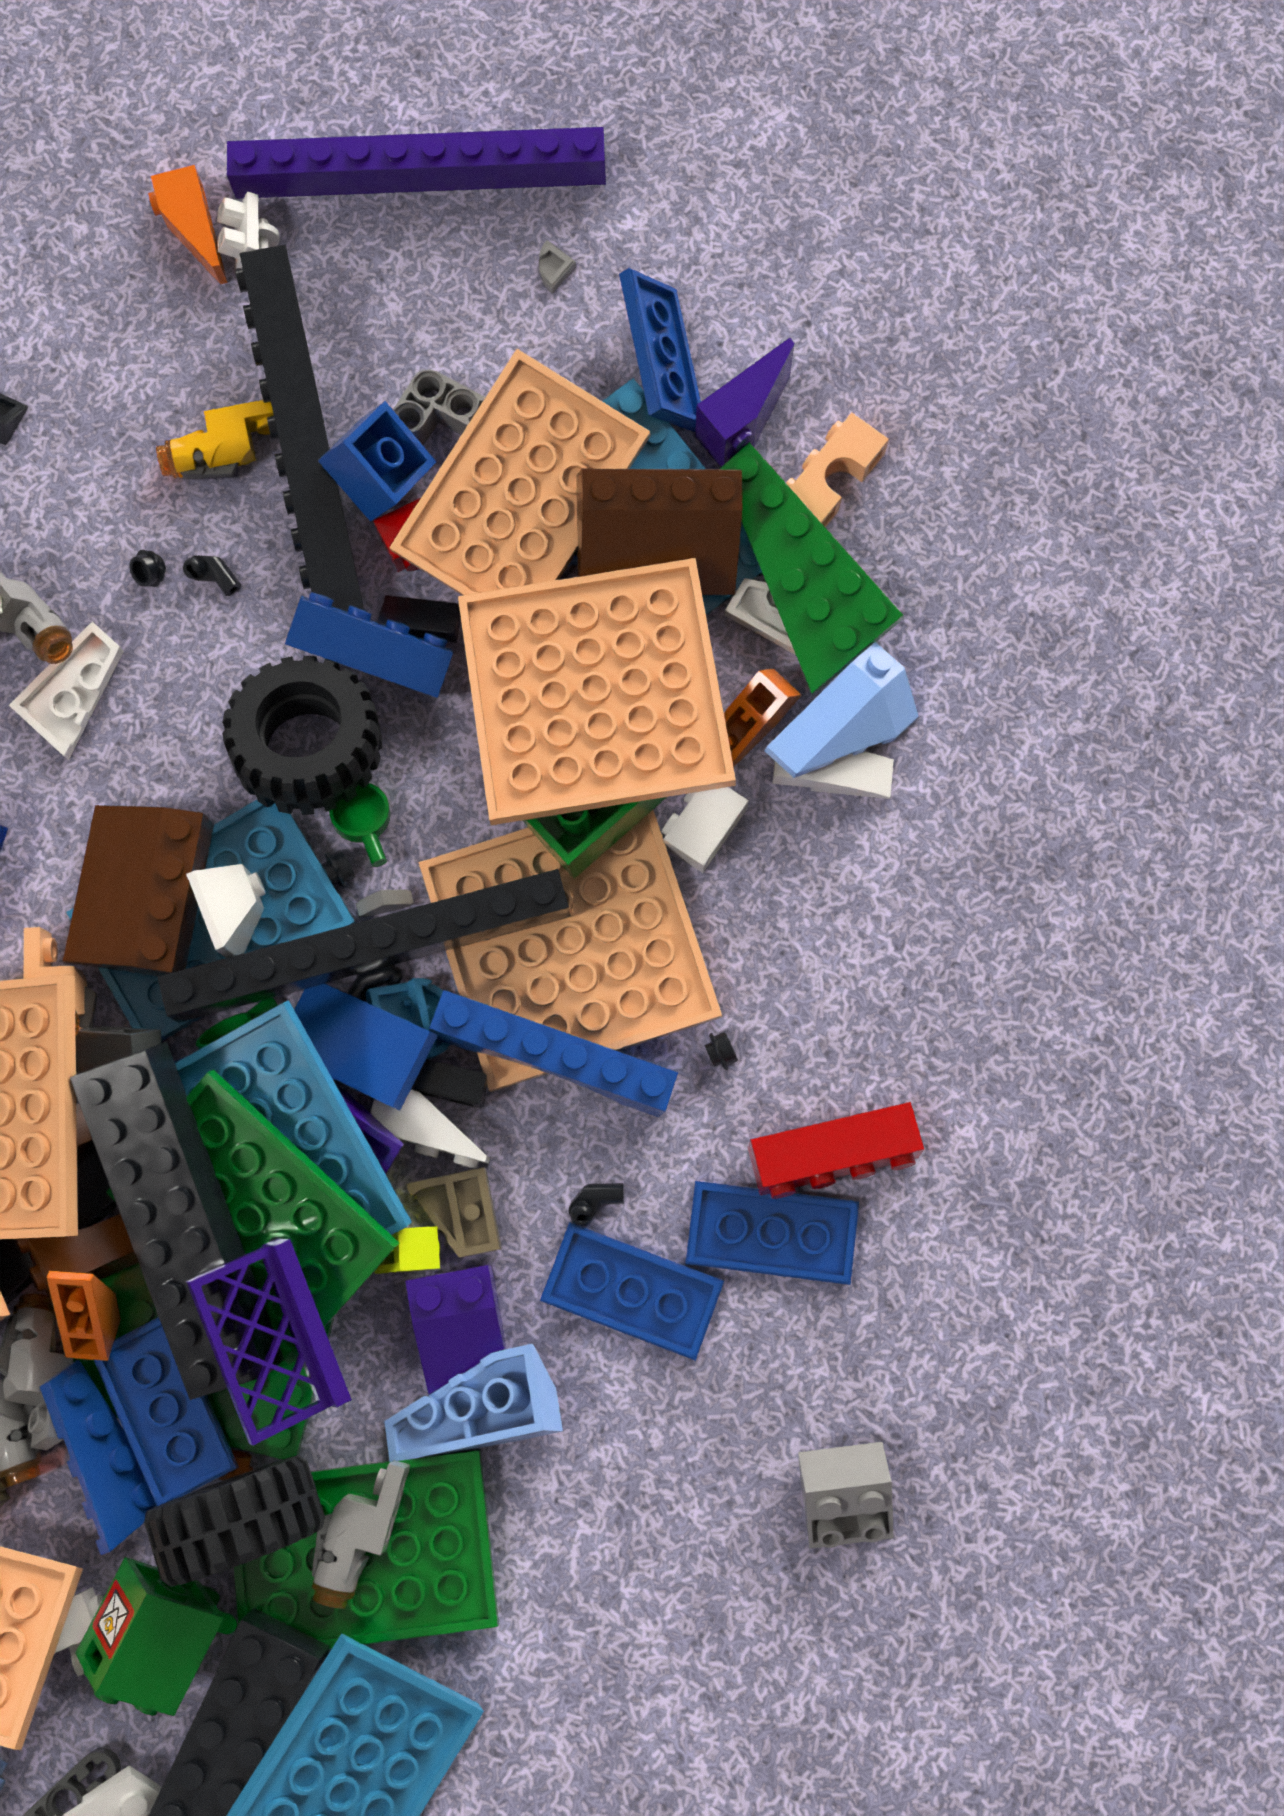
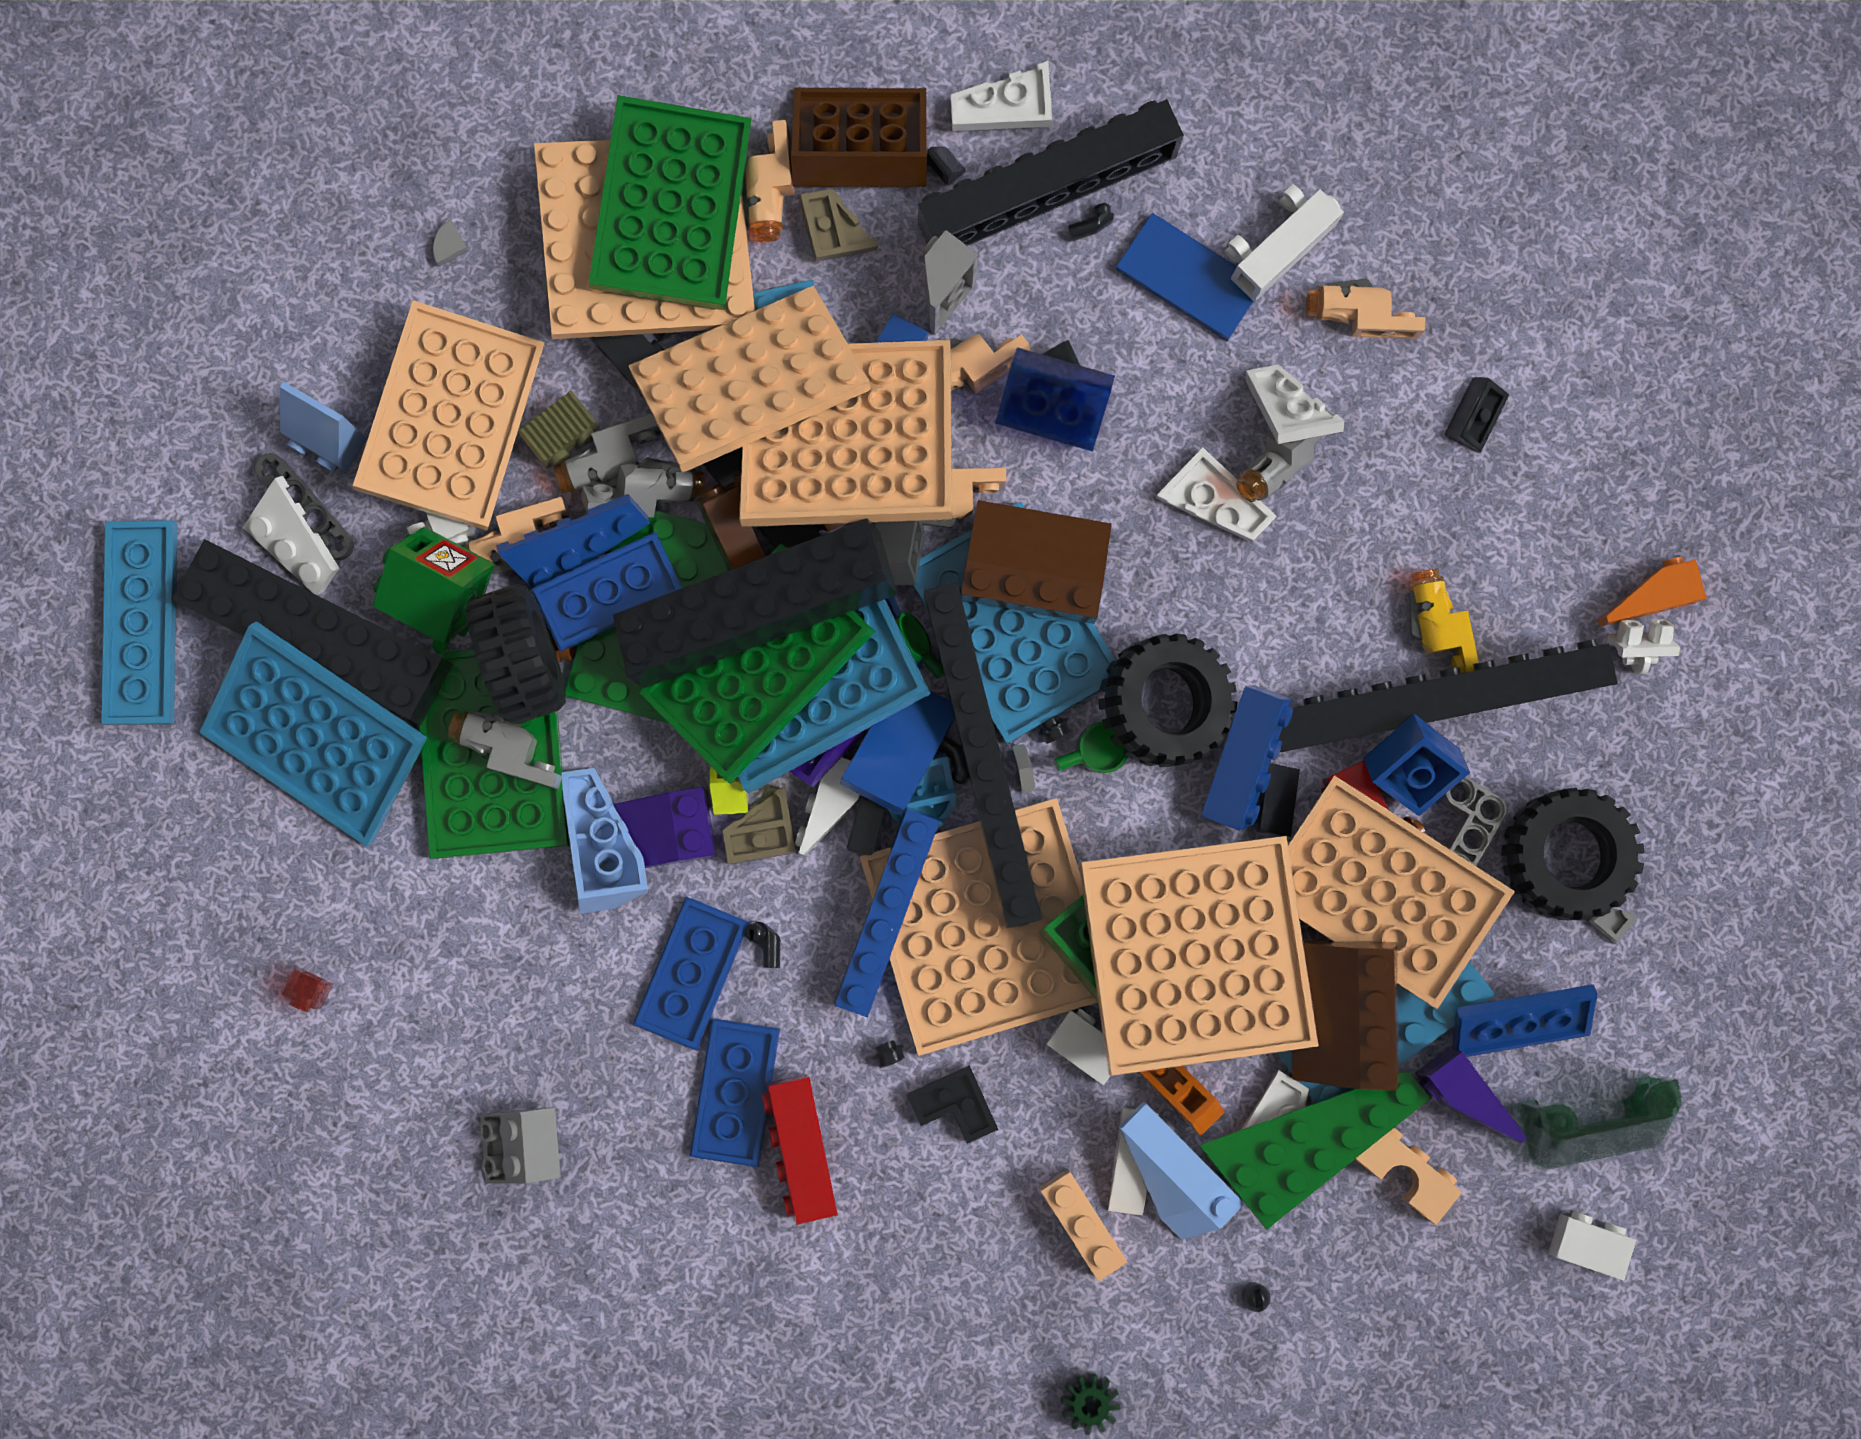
camera: 85 degrees right, 5 degrees up
(80, 1534) = (514, 526): none -> light nougat plate
(85, 1314) = (680, 530): orange slope -> none
(147, 568) = (1325, 562): black plate -> none
(213, 570) = (1325, 617): black arm -> none
(229, 905) = (1018, 640): white slope -> none
(304, 1325) = (665, 707): dark purple fence -> none
(417, 162) = (1712, 801): dark purple brick -> none
(469, 257) = (1616, 845): none -> black tyre
(664, 1781) = (306, 990): none -> clear red plate
(765, 969) = (955, 1094): none -> black plate
(787, 302) = (1560, 1141): none -> clear green windscreen
(902, 284) = (1591, 1246): none -> white brick
(907, 820) = (1083, 1225): none -> light nougat arch
(980, 639) = (1249, 1299): none -> black hinge
(1106, 824) = (1102, 1405): none -> dark green gear

